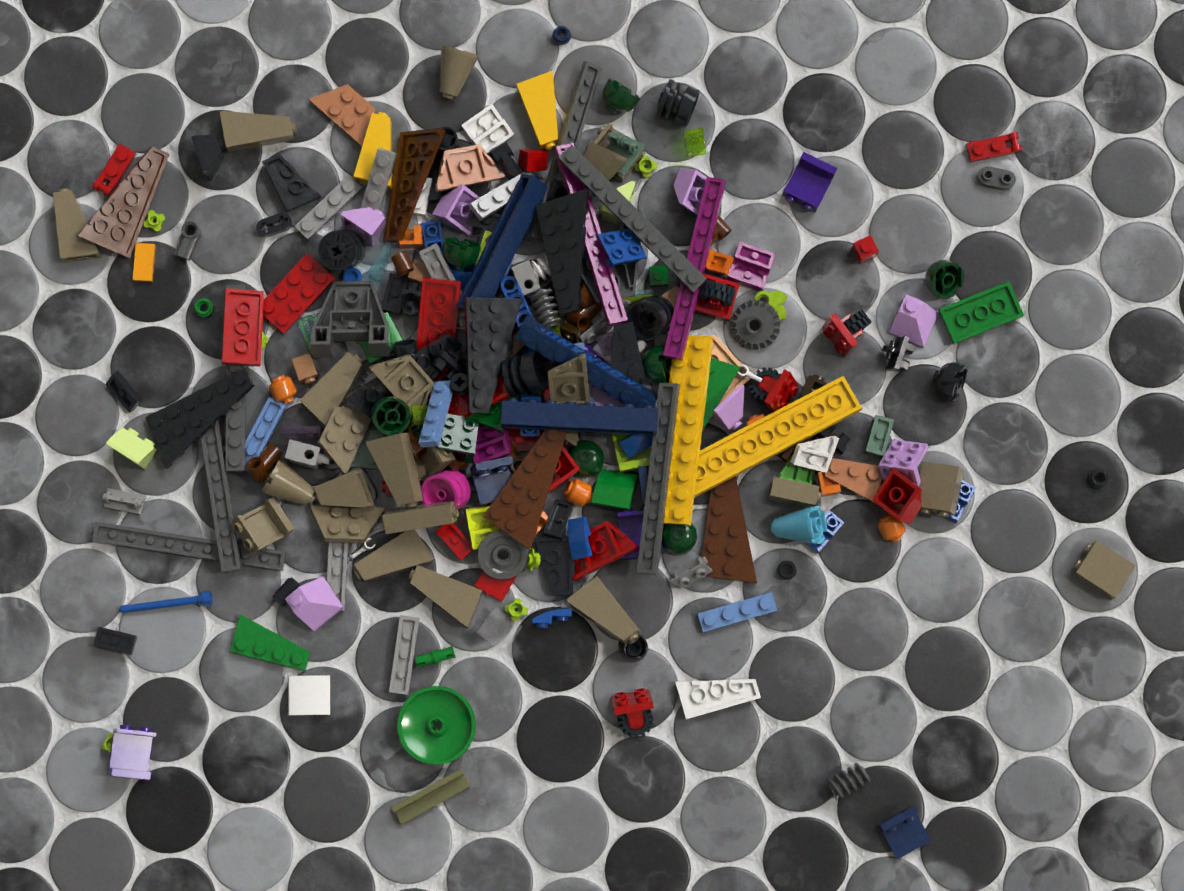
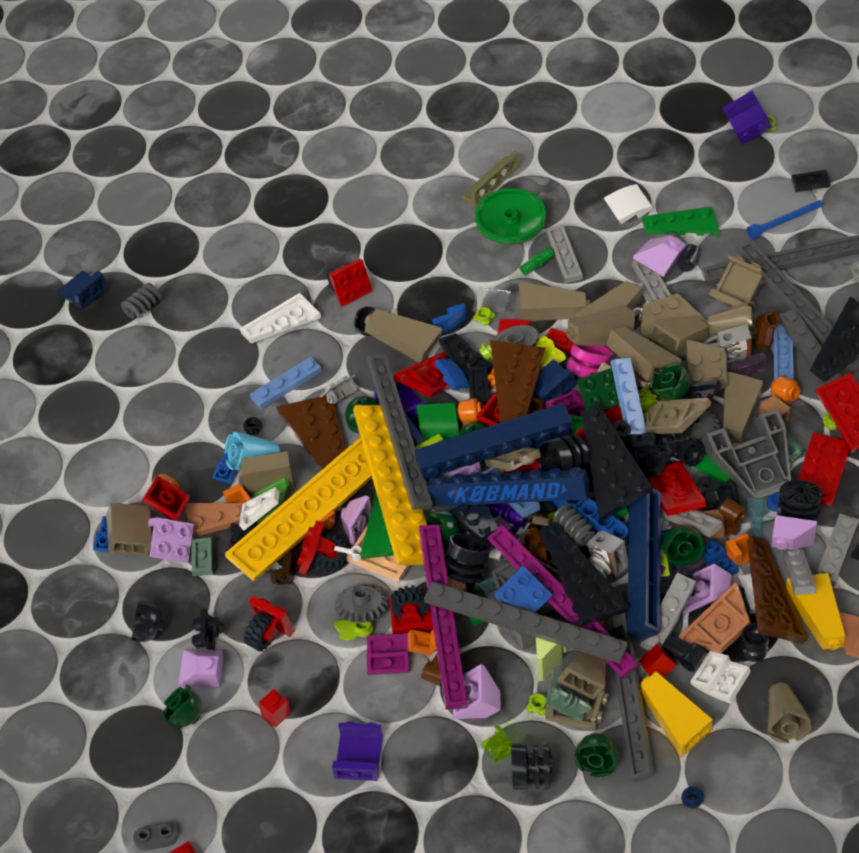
camera: 165 degrees right, 30 degrees down
(981, 312) = (132, 698): green plate -> none

